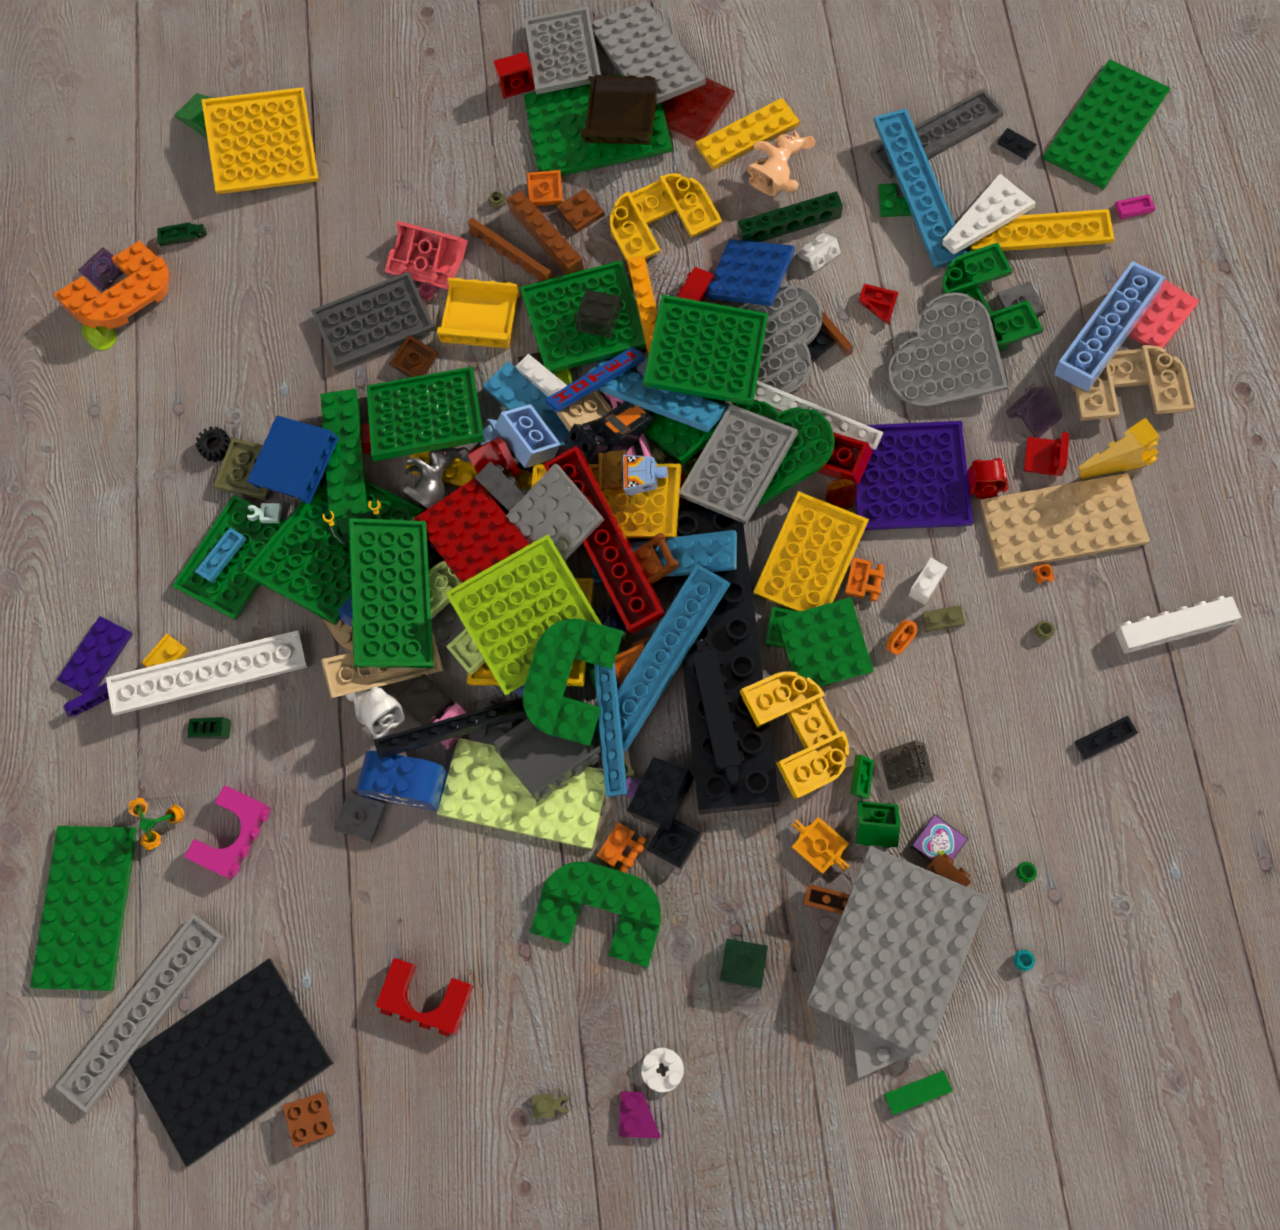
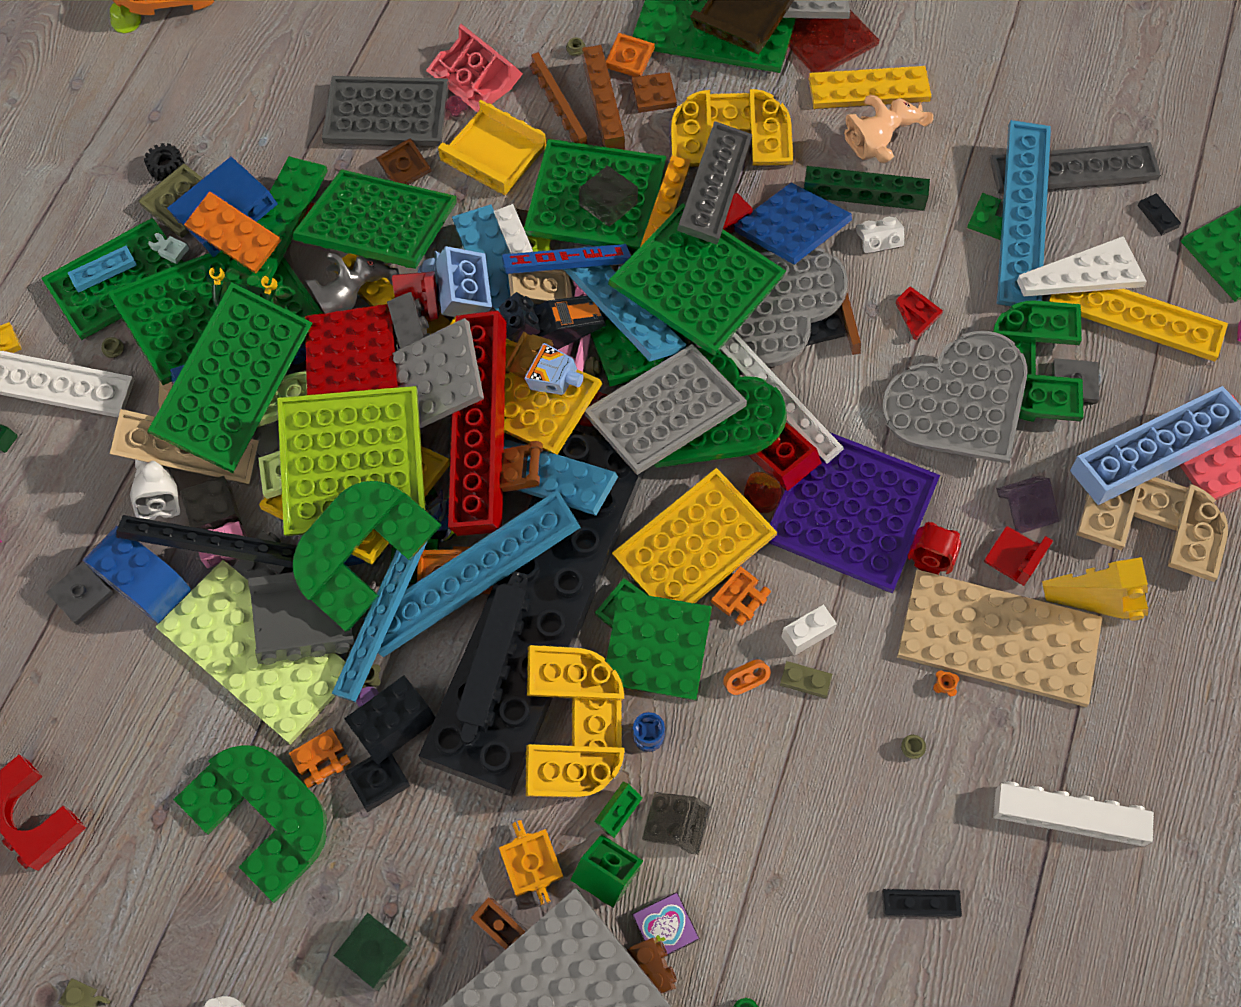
camera: 20 degrees right, 5 degrees down
(265, 614) = (112, 347): none -> olive plate
(320, 477) = (232, 232): none -> orange plate
(677, 266) = (715, 183): none -> flat silver plate
(853, 710) = (648, 732): none -> blue wheel

